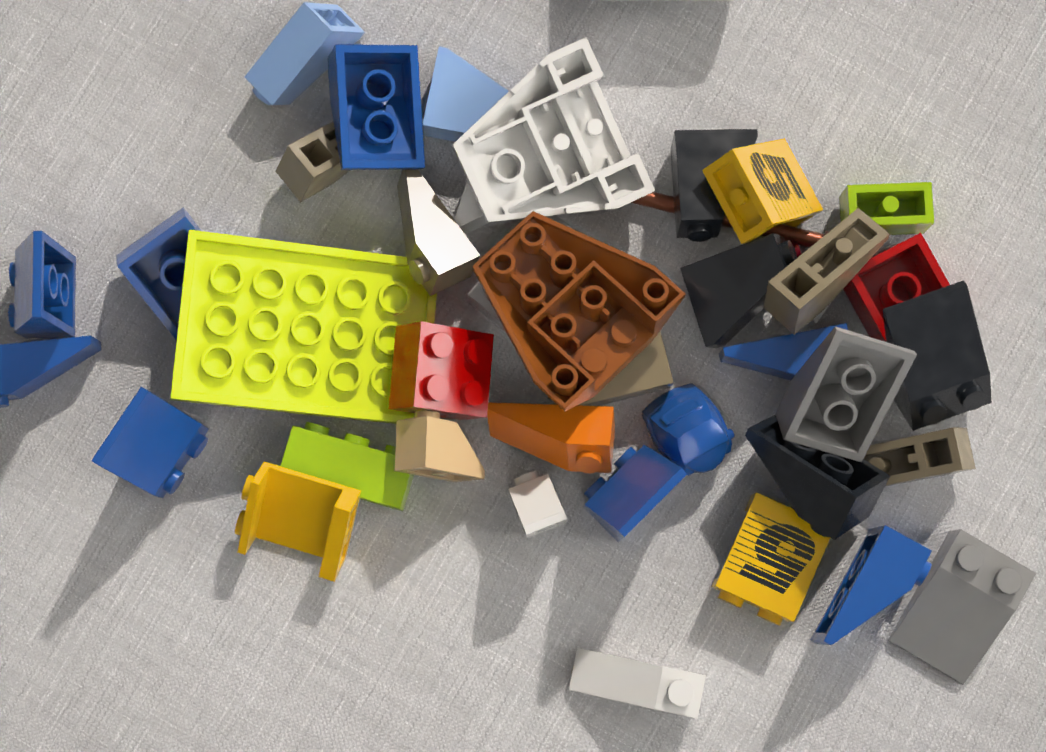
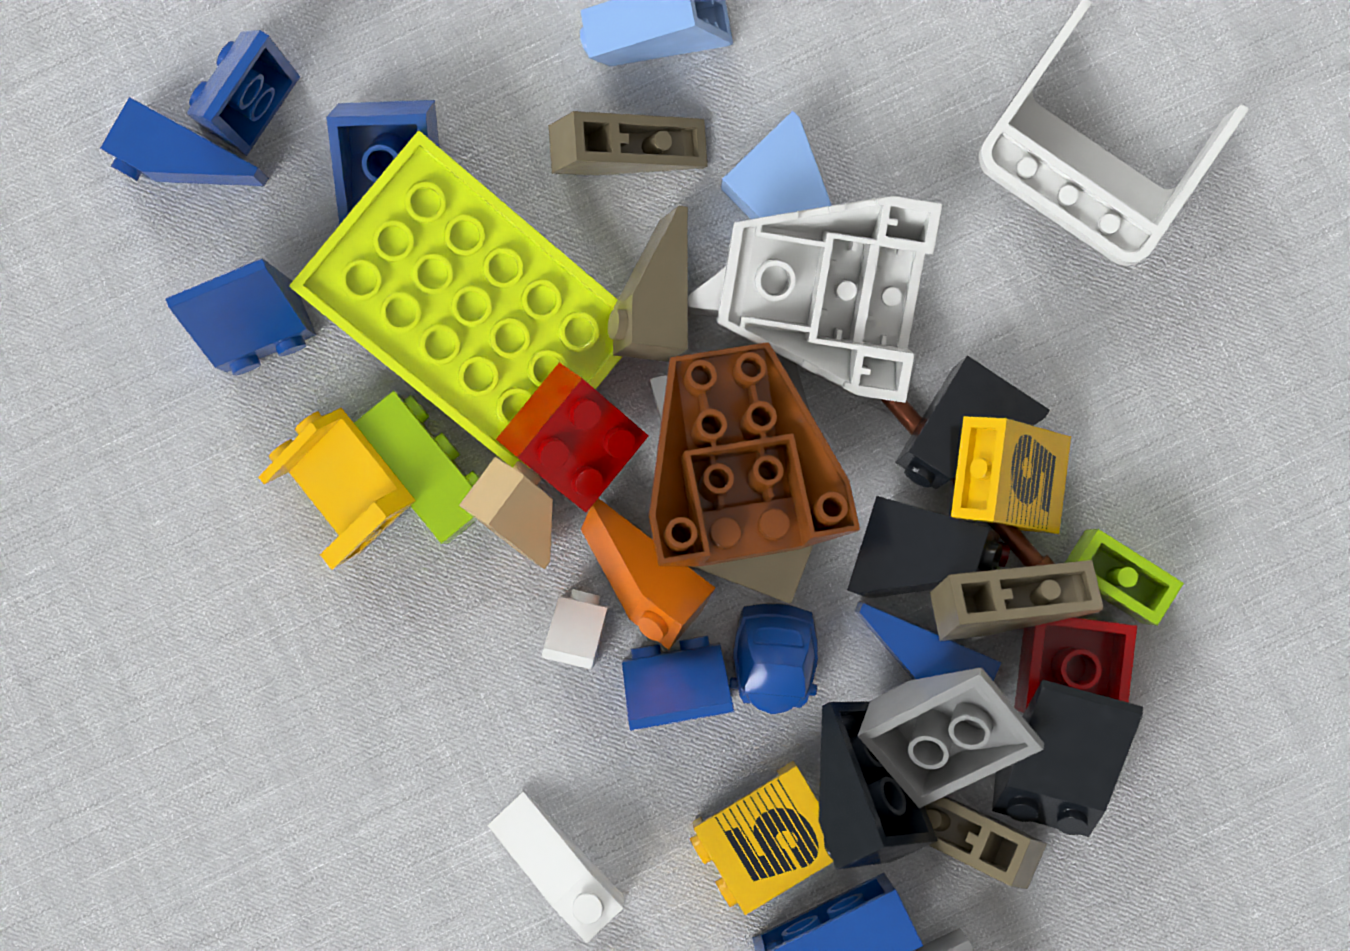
camera: 30 degrees right, 5 degrees up
(376, 106) = (689, 131): blue slope -> none

